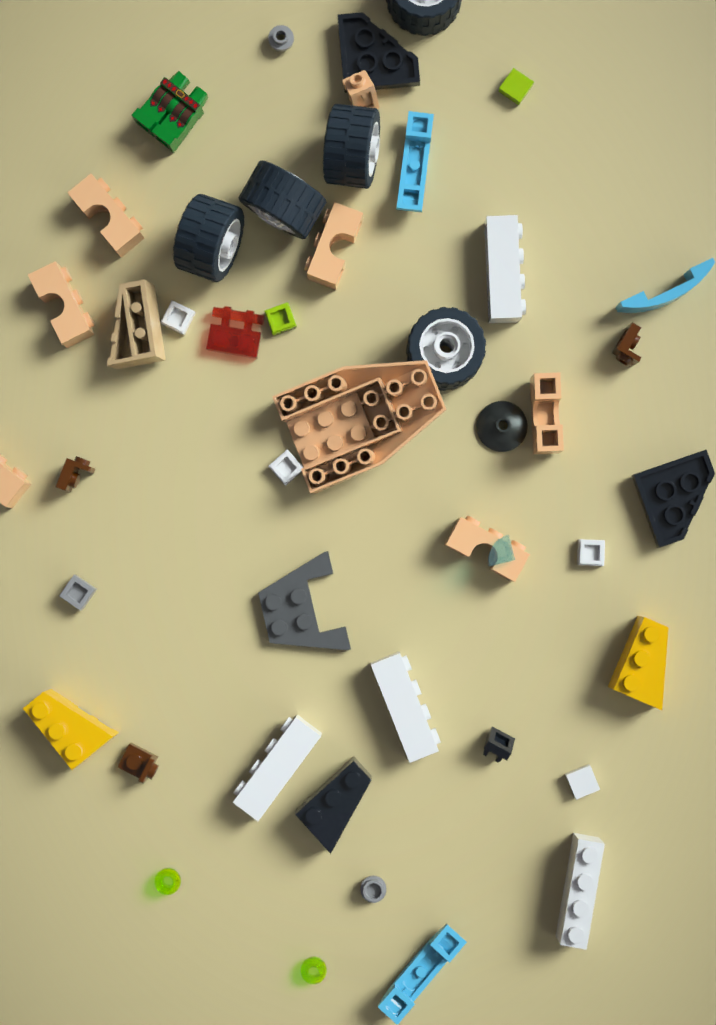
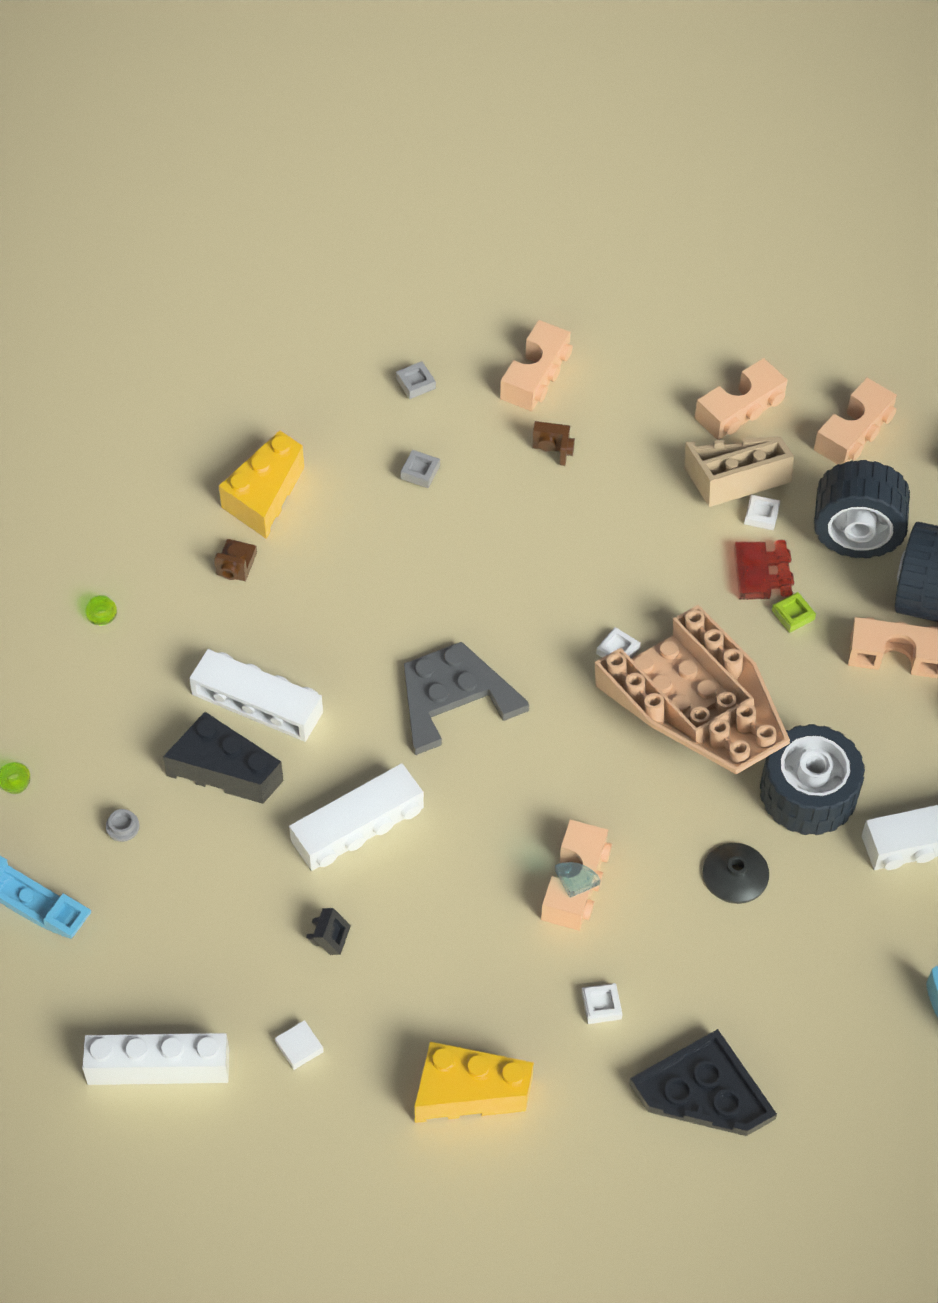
camera: 75 degrees right, 30 degrees down
(545, 399) = (789, 905): light nougat arch -> none
(628, 340) = (887, 990): reddish brown bracket -> none

